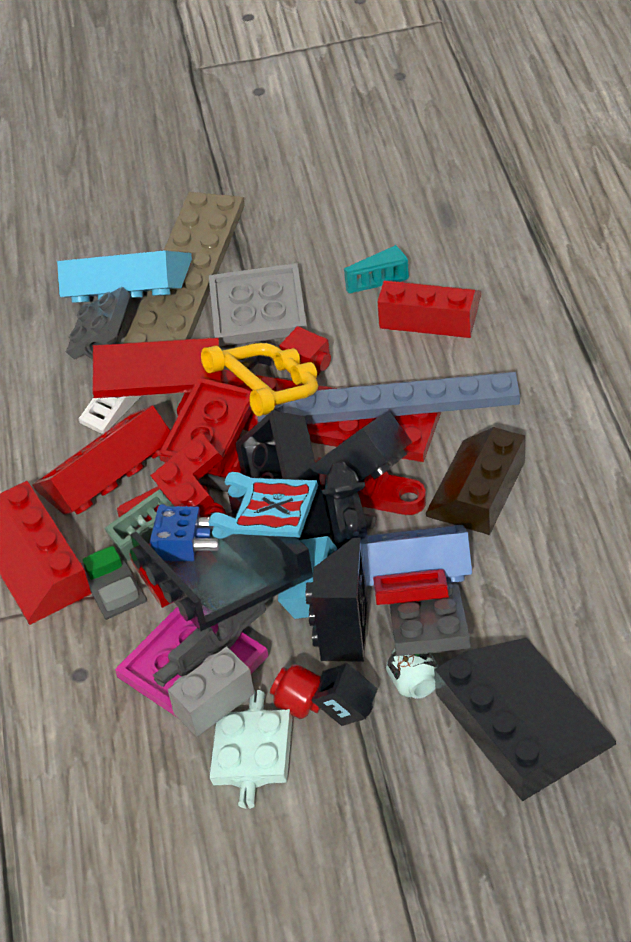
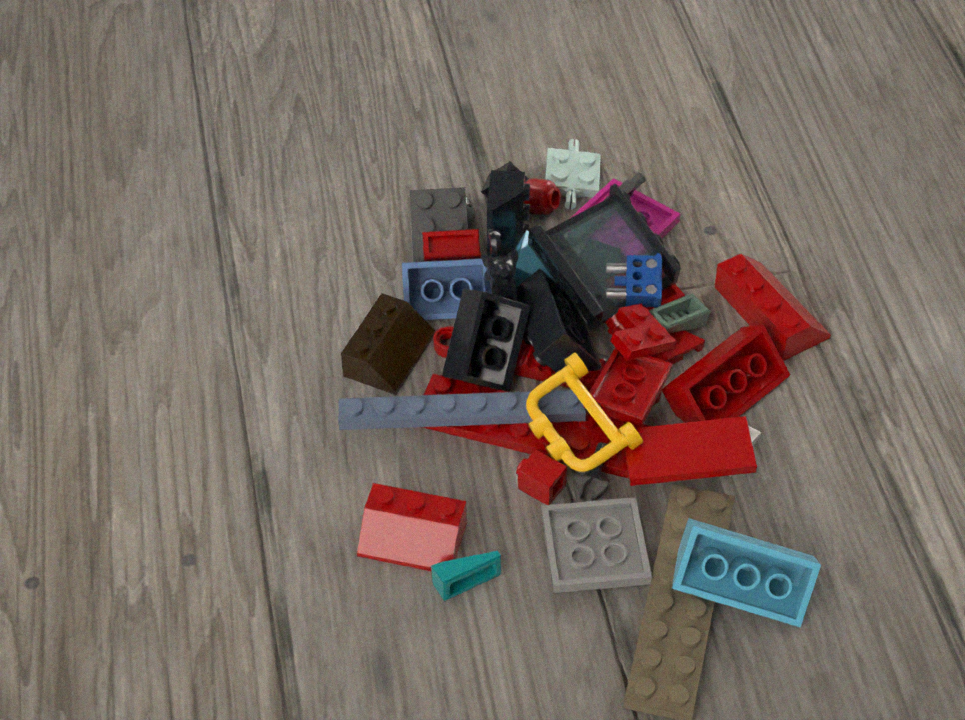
camera: 175 degrees right, 0 degrees up
(98, 323) = (761, 513): dark grey plate -> none
(112, 582) = (694, 280): piece -> none
(211, 691) = (594, 178): light grey brick -> none
(267, 508) = (565, 271): medium azure flag -> none
(520, 714) = (374, 180): black slope -> none

